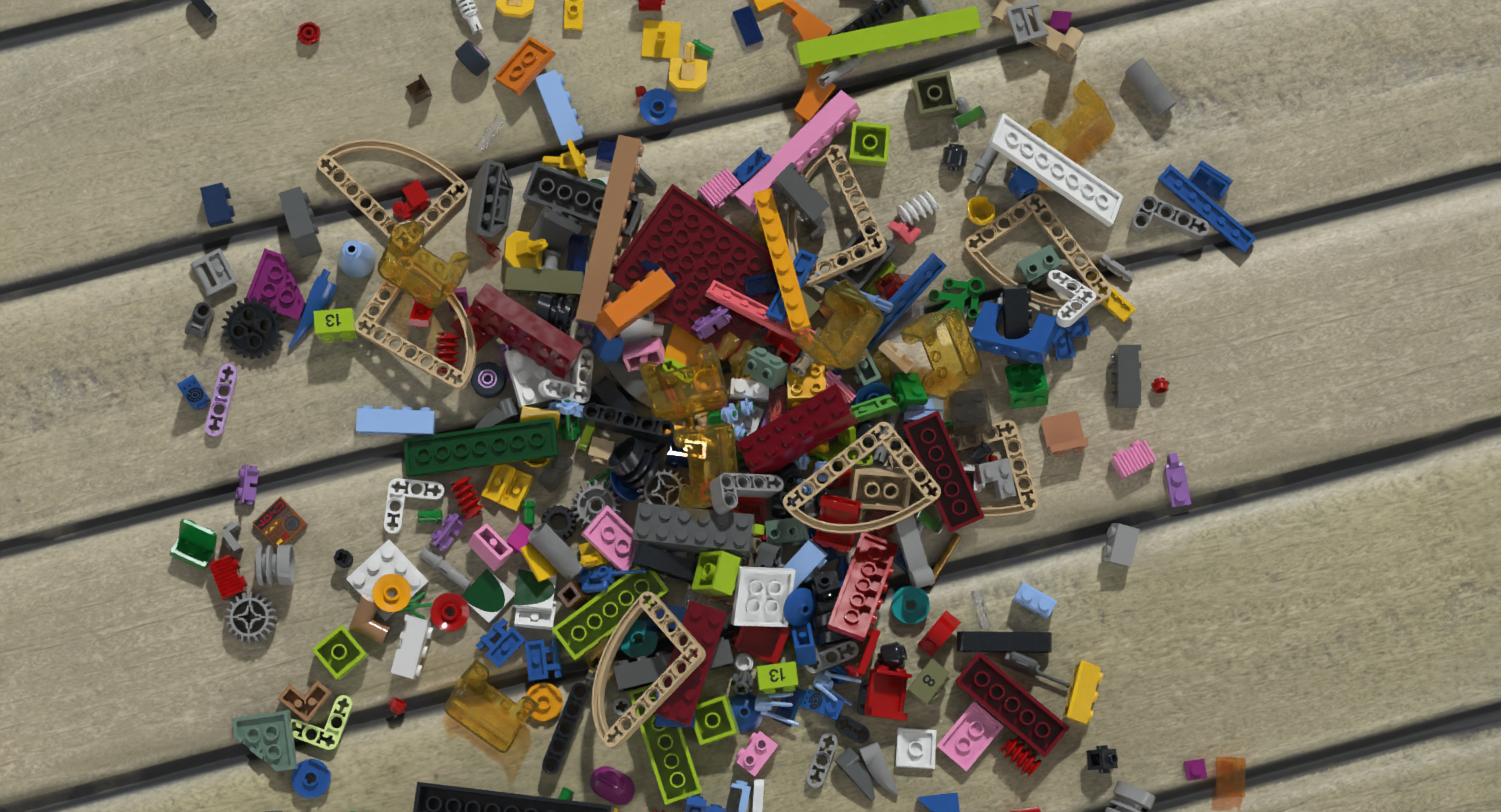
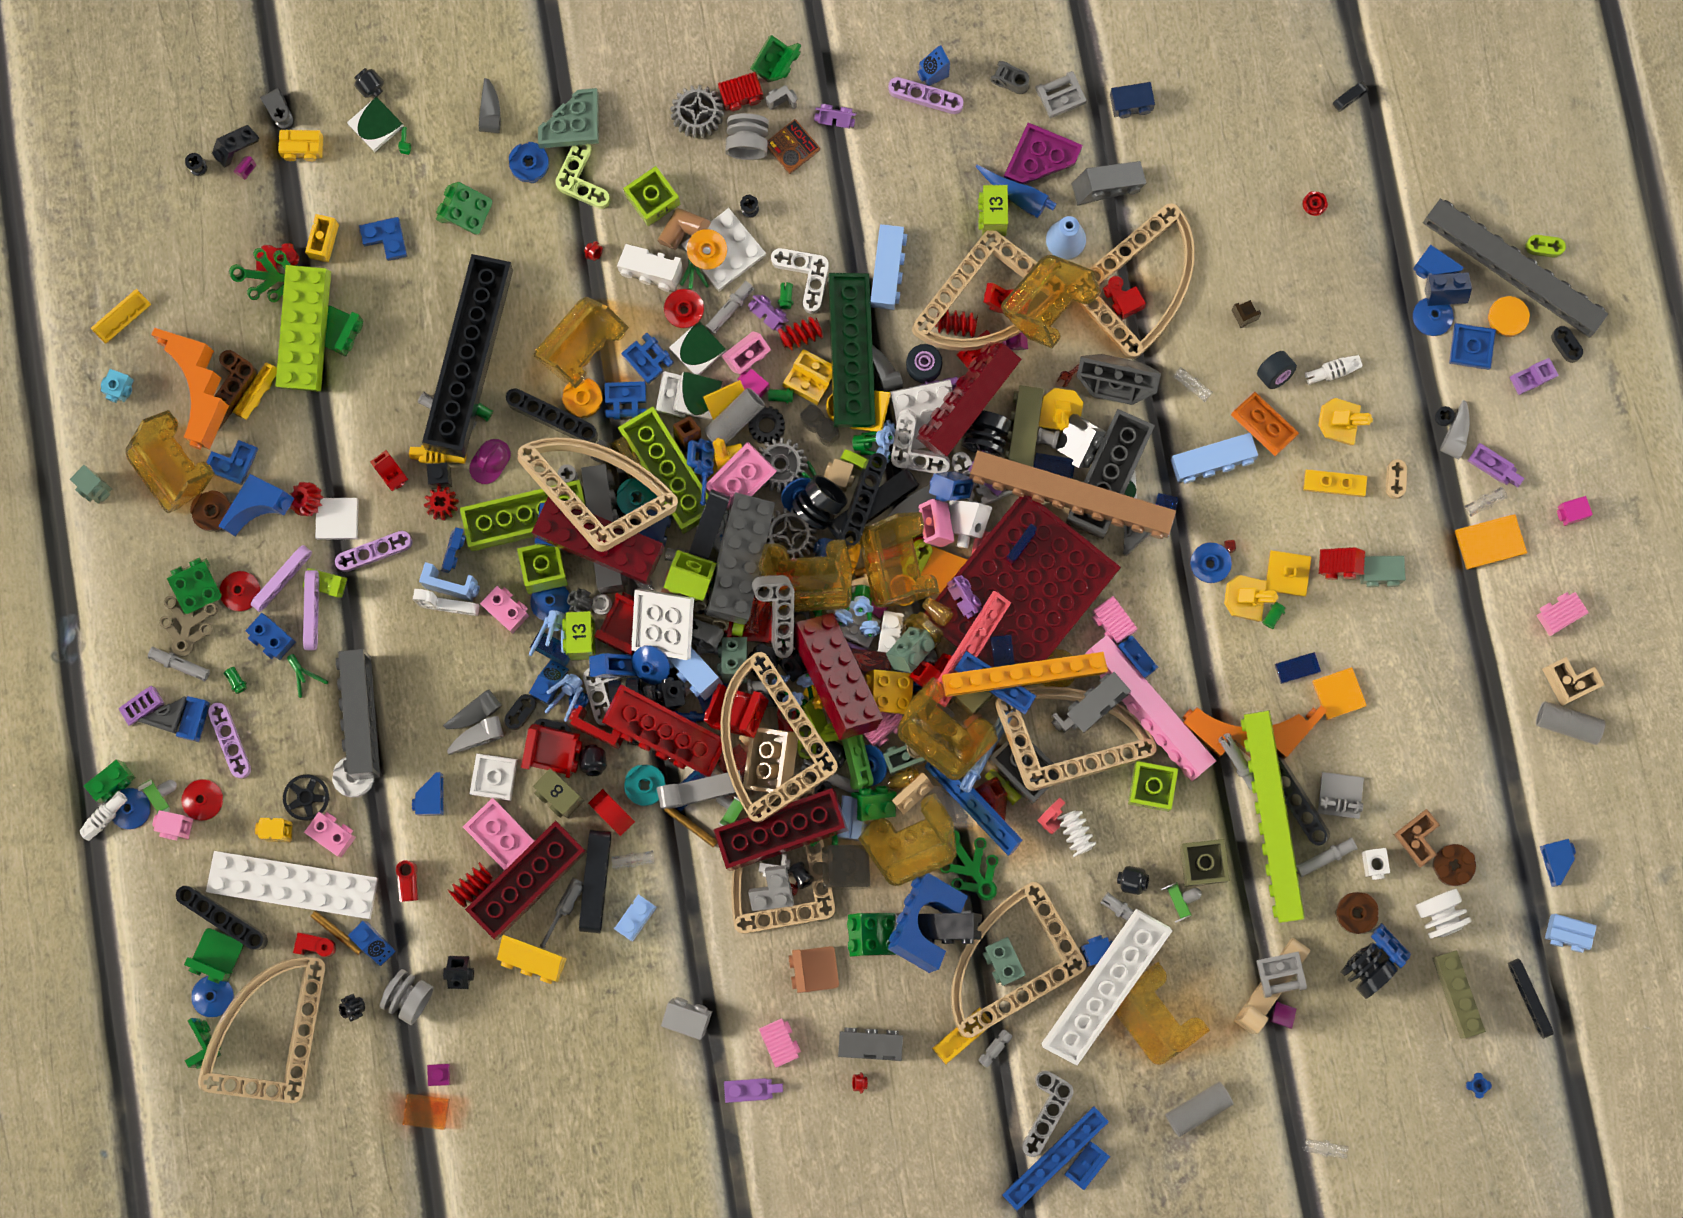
camera: 105 degrees right, 0 degrees up
(245, 342) = (998, 129): black gear -> none
(305, 705) = (603, 162): medium nougat brick -> none
(568, 161) = (1155, 465): yellow piece -> none
(634, 304) = (986, 512): orange brick -> none
(801, 364) = (909, 686): light grey bush -> none
(831, 748) = (480, 665): light grey beam -> none
(980, 210) = (1070, 902): yellow hair -> none
(1060, 281) = (961, 996): white beam -> none
(1063, 342) = (927, 983): blue plate -> none

